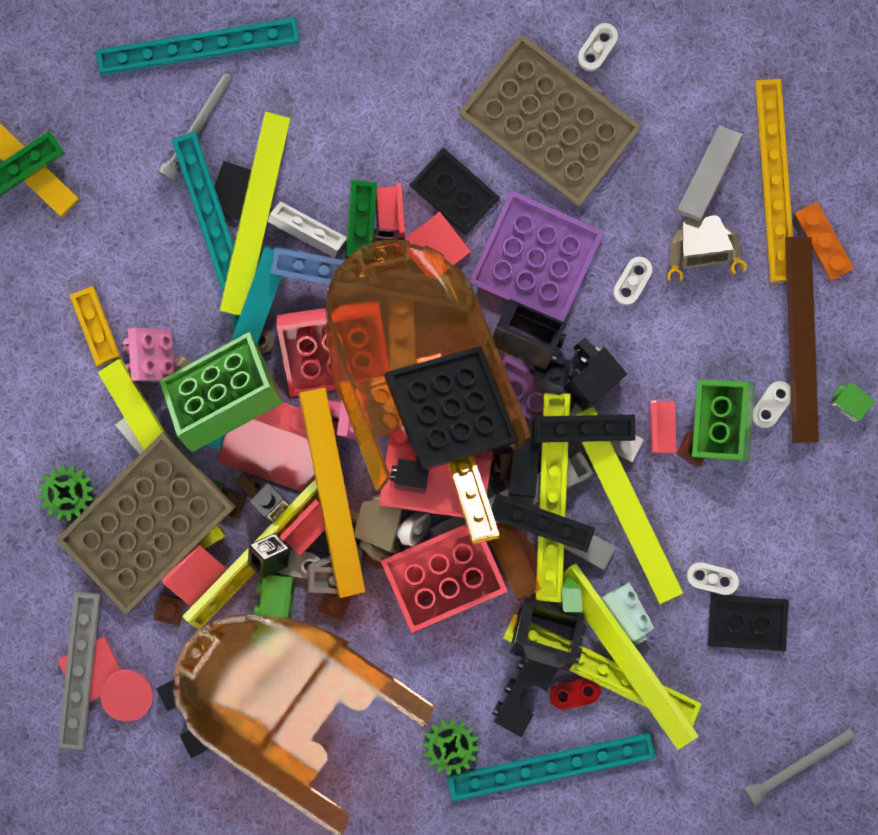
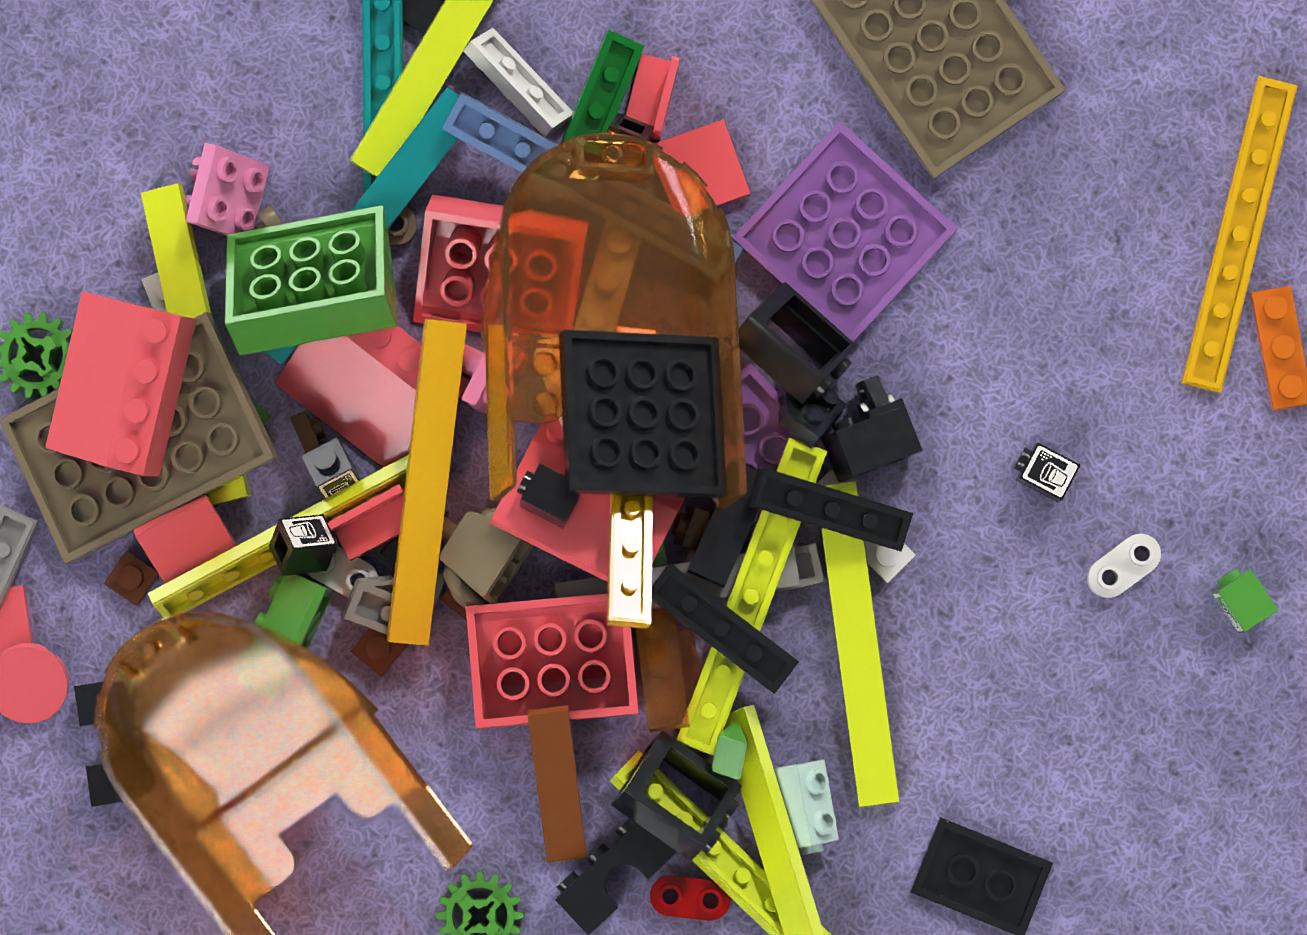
camera: 20 degrees right, 0 degrees up
(95, 326) = (159, 124): yellow tile -> none
(124, 494) = (120, 384): none -> coral slope
(237, 499) = (285, 448): dark brown plate -> none
(414, 528) = (531, 575): white plate -> none
(454, 191) = (755, 96): black tile -> none
(471, 650) = (557, 783): none -> dark orange tile
(597, 554) = (791, 701): light grey slope -> none
(633, 282) = (976, 315): white plate -> none
(662, 427) = (949, 546): coral panel -> none
(685, 451) = (985, 593): copper plate -> none
(704, 245) = (1100, 293): torso -> none
(706, 362) = (1046, 471): none -> black brick
(709, 173) = (1143, 192): light grey tile -> none
(712, 578) = (949, 794): white plate -> none
(723, 420) = (1043, 565): bright green slope -> none
(801, 339) = (1199, 483): reddish brown tile -> none

